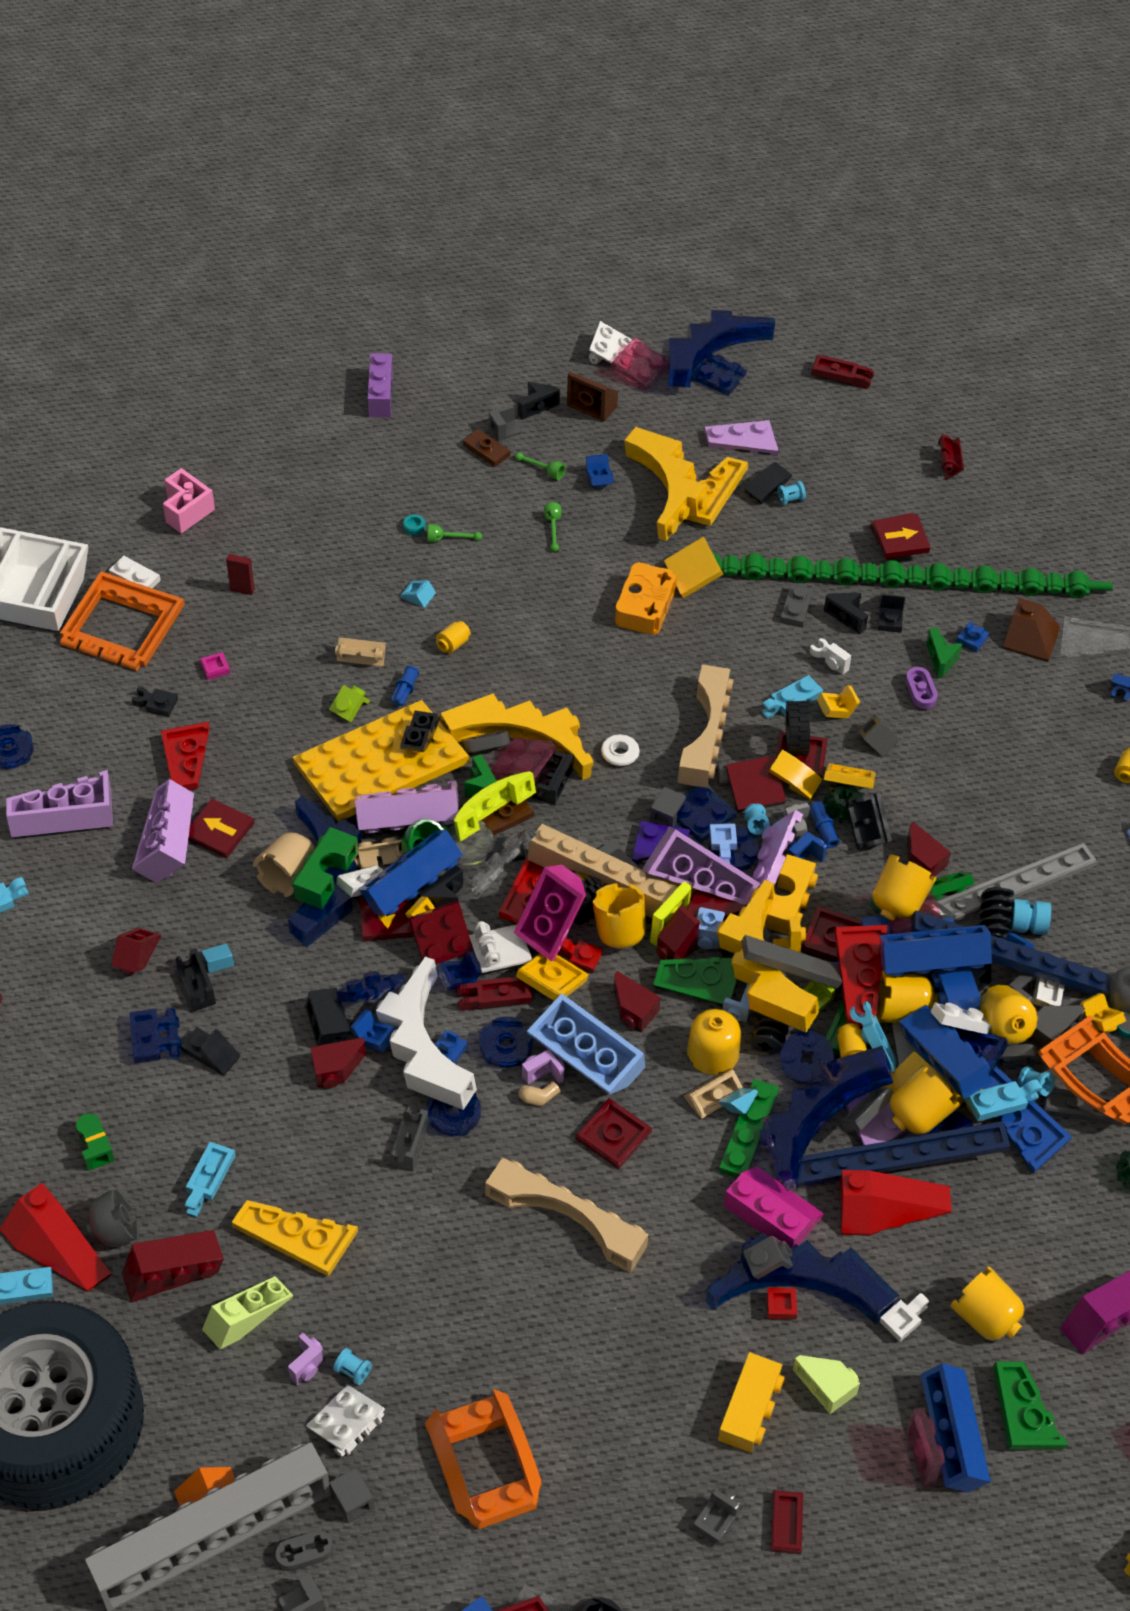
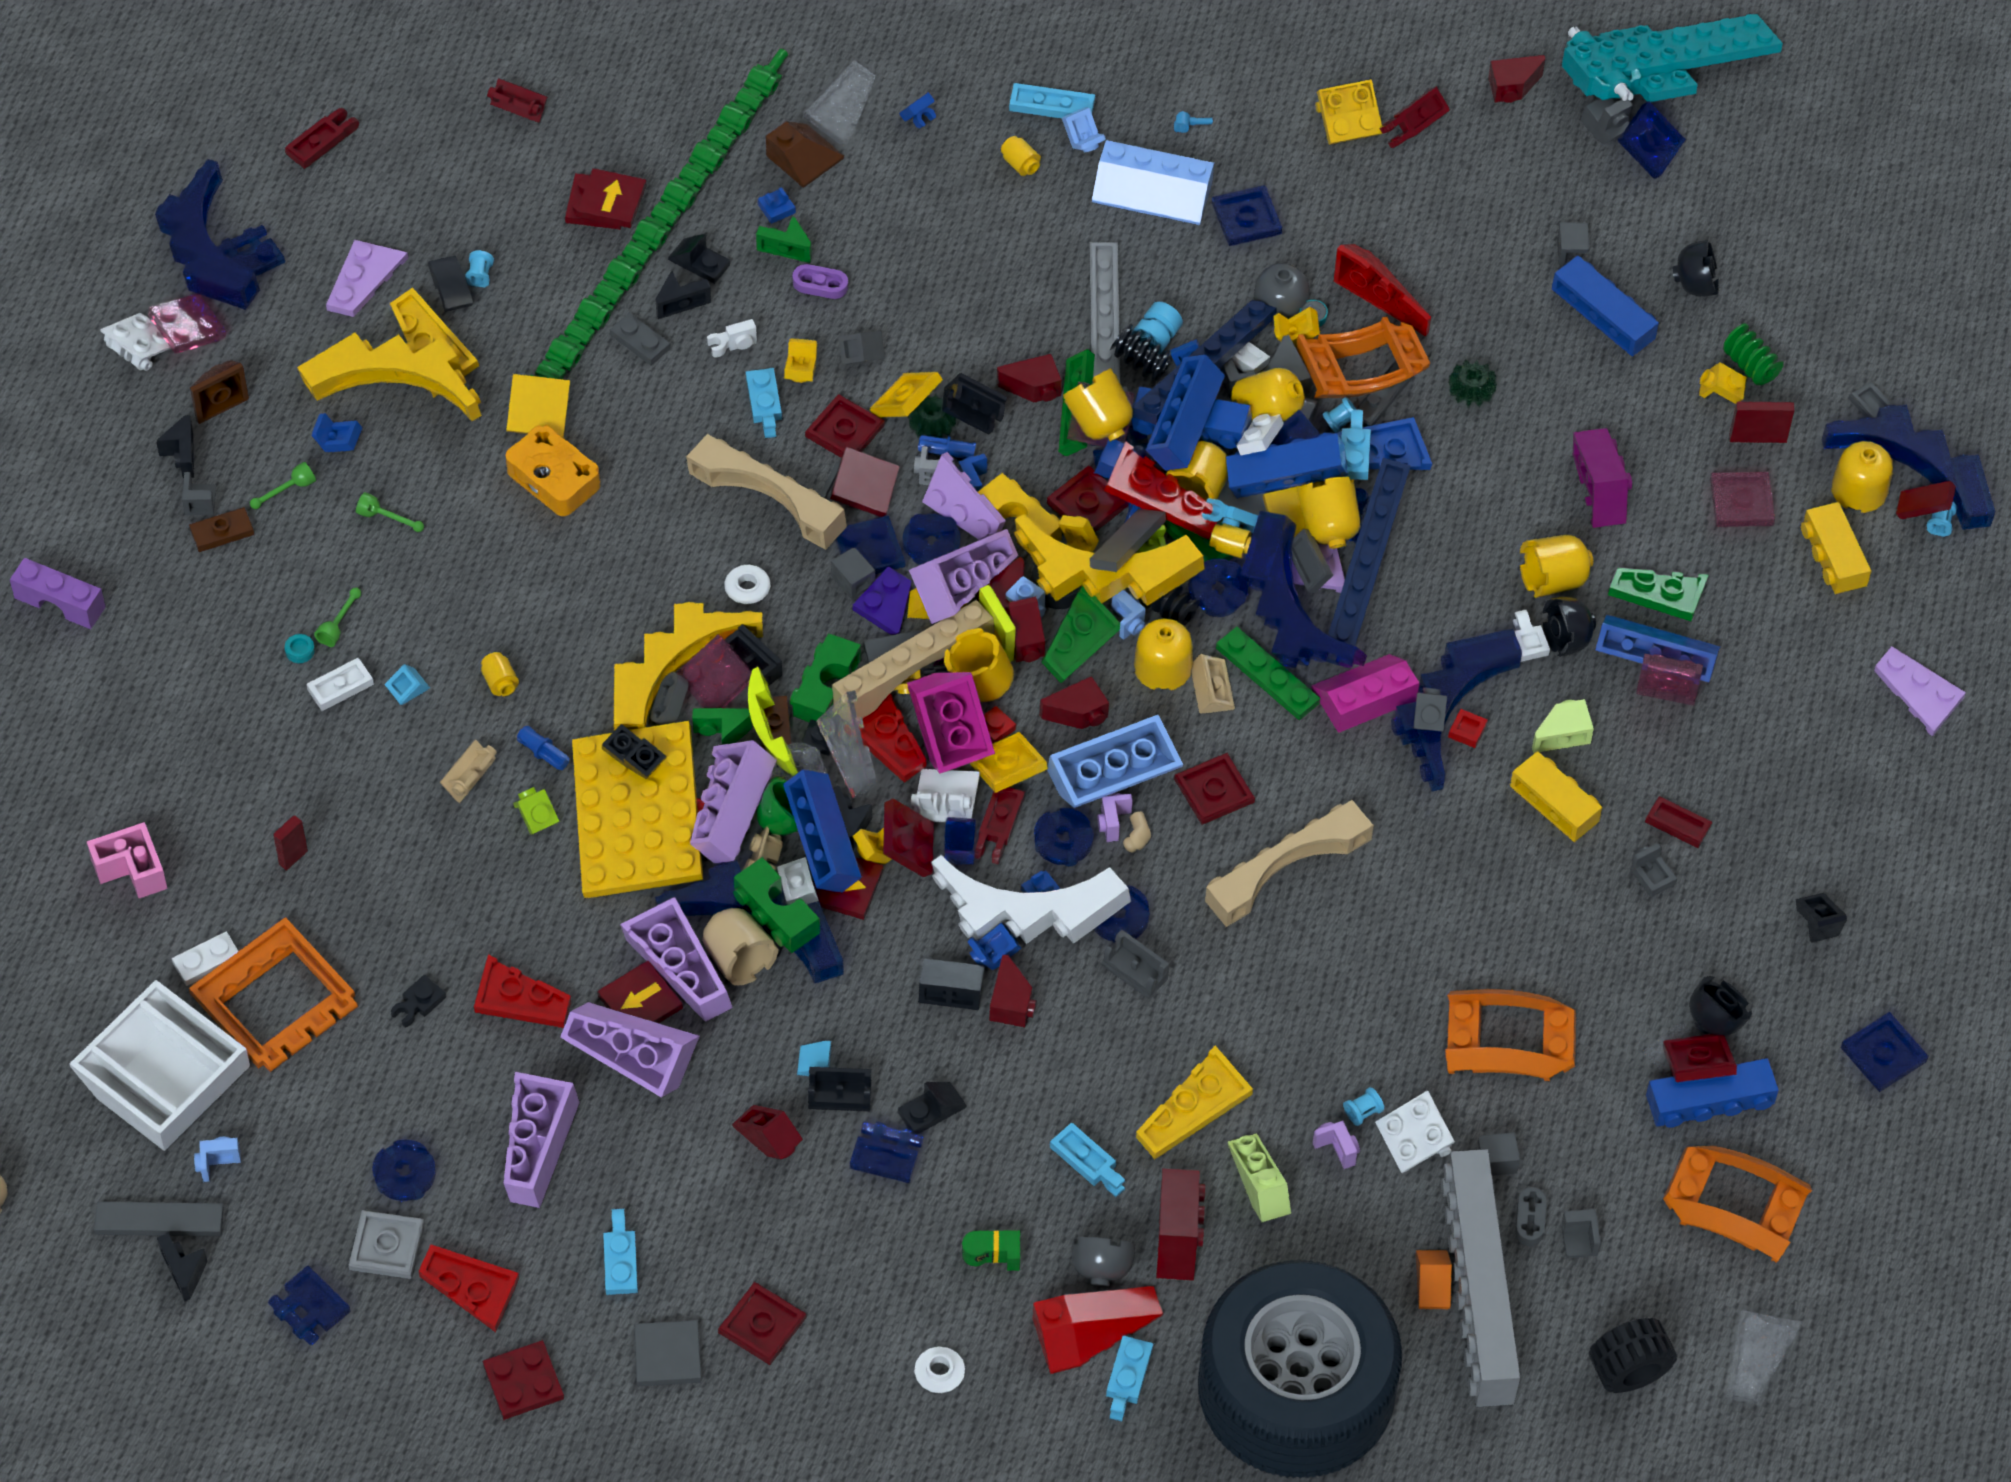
camera: 65 degrees left, 5 degrees up
(215, 666) = (399, 924): dark pink tile -> none
(266, 820) = (676, 954): none -> lavender wedge
(369, 987) = (937, 929): clear blue plate -> none
(394, 555) = (340, 684): none -> white plate
(577, 824) = (832, 660): none -> green arch
(723, 839) = (930, 537): light blue plate -> none
(739, 1100) = (1237, 664): medium azure slope -> none
(756, 818) = (911, 500): medium azure bush -> none
(796, 774) = (876, 440): yellow slope -> none
(797, 727) = (830, 407): black tyre -> none
(884, 1201) = (1404, 599): red wedge -> none
(933, 1342) = (1568, 625): none -> black cylinder

